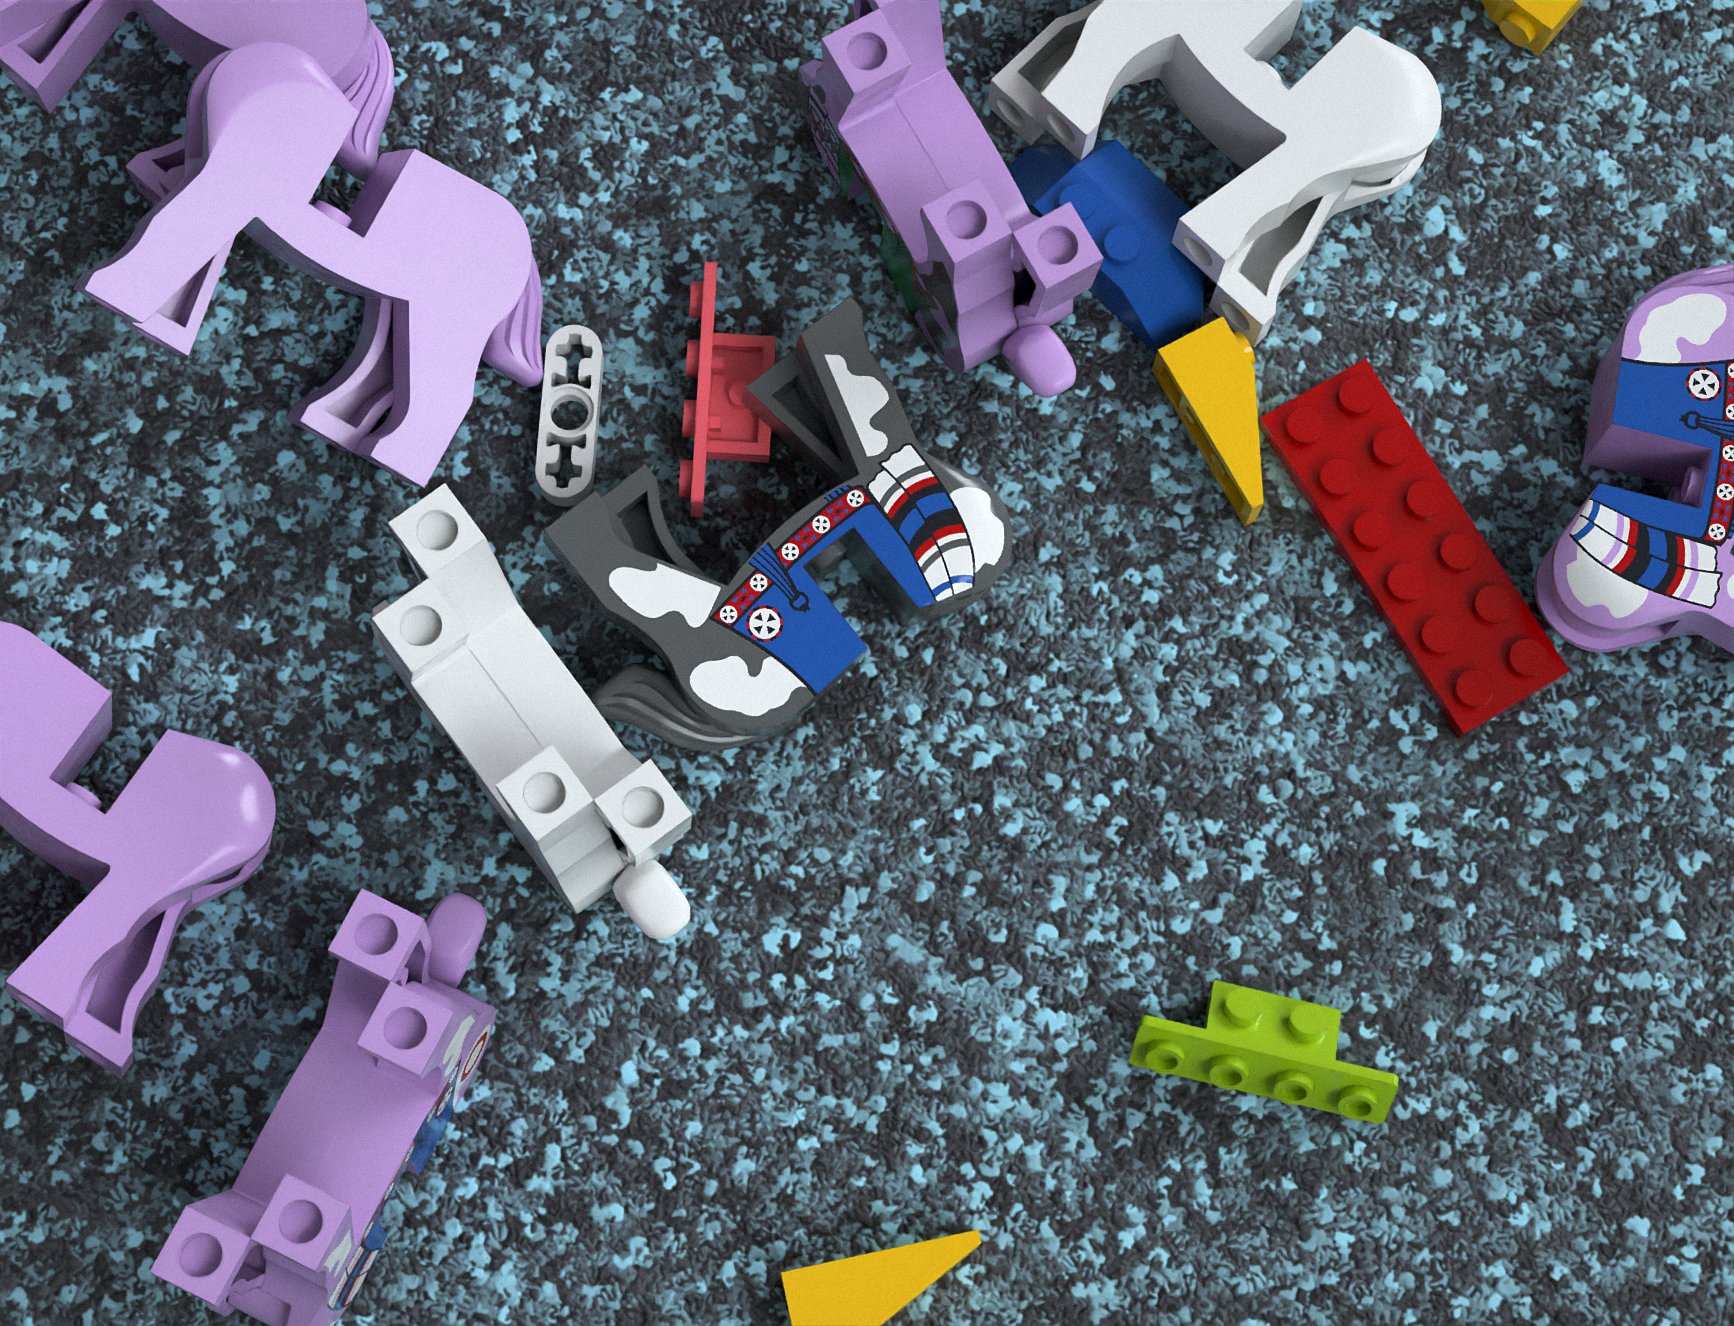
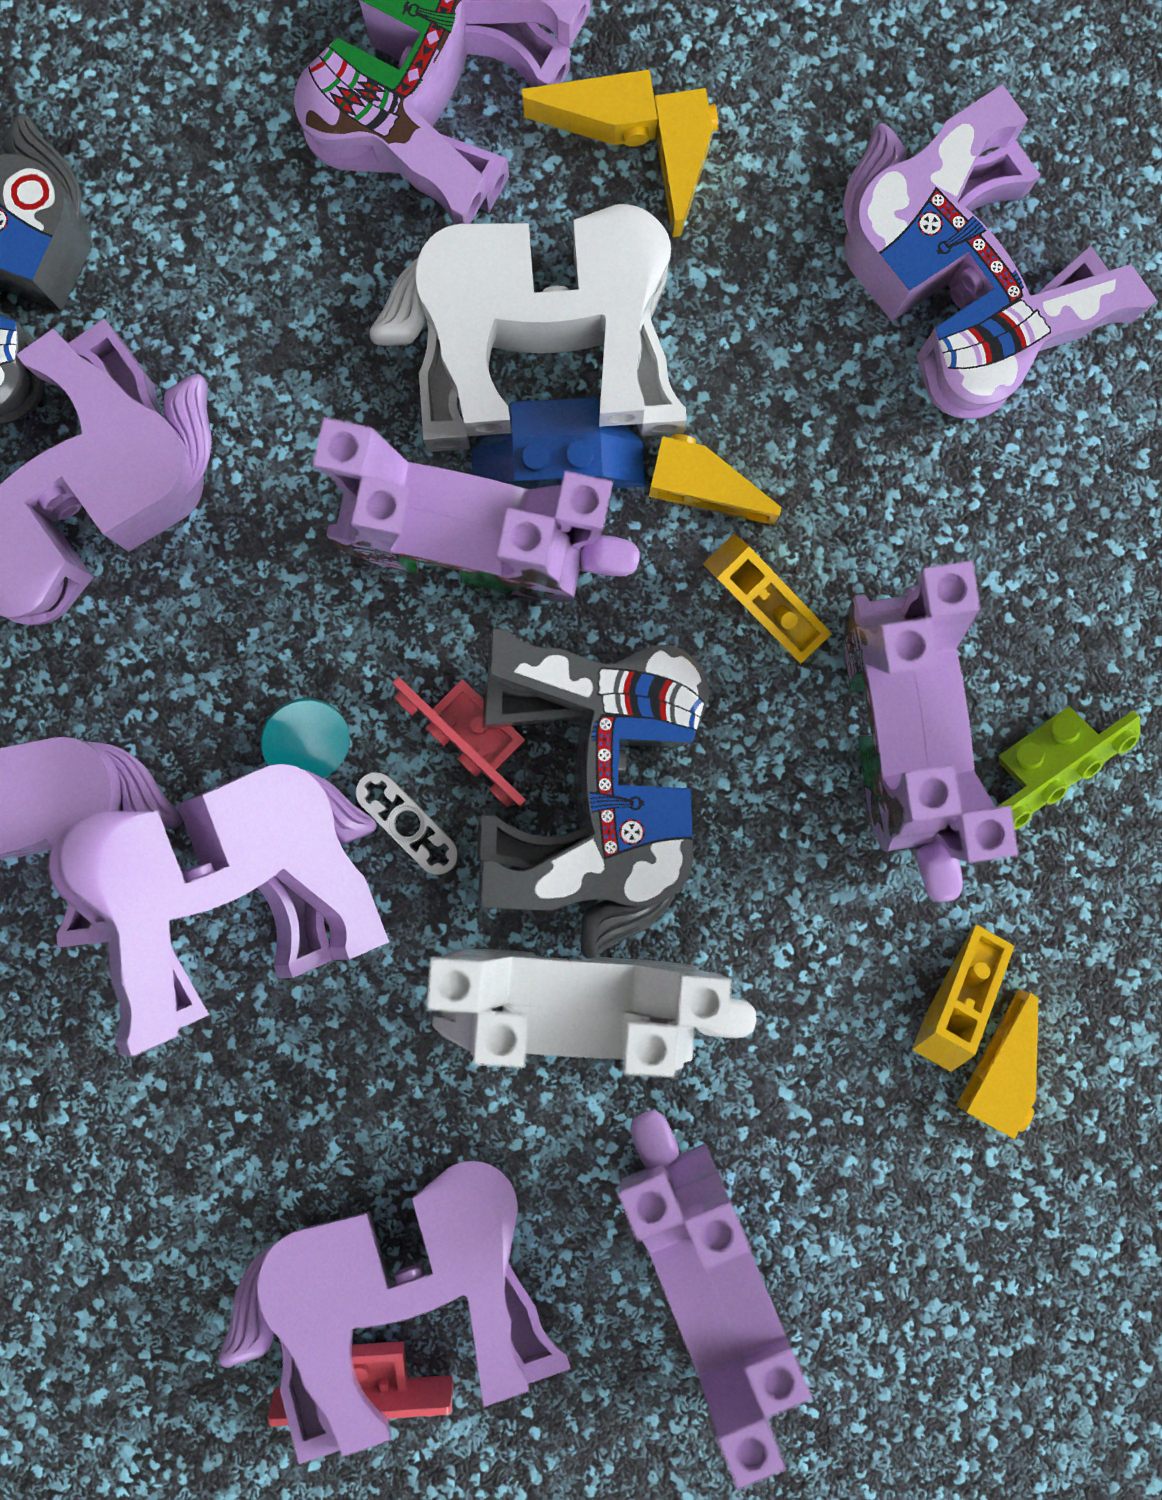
camera: 45 degrees left, 10 degrees up
(572, 230) = (306, 736): none -> teal piece
(907, 1171) = (964, 1000): none -> yellow slope
(1154, 580) = (767, 598): none -> yellow slope
(1156, 828) = (920, 738): none -> lavender animal
(1412, 548) = (862, 450): red plate -> none
(1552, 89) = (683, 145): none -> yellow slope

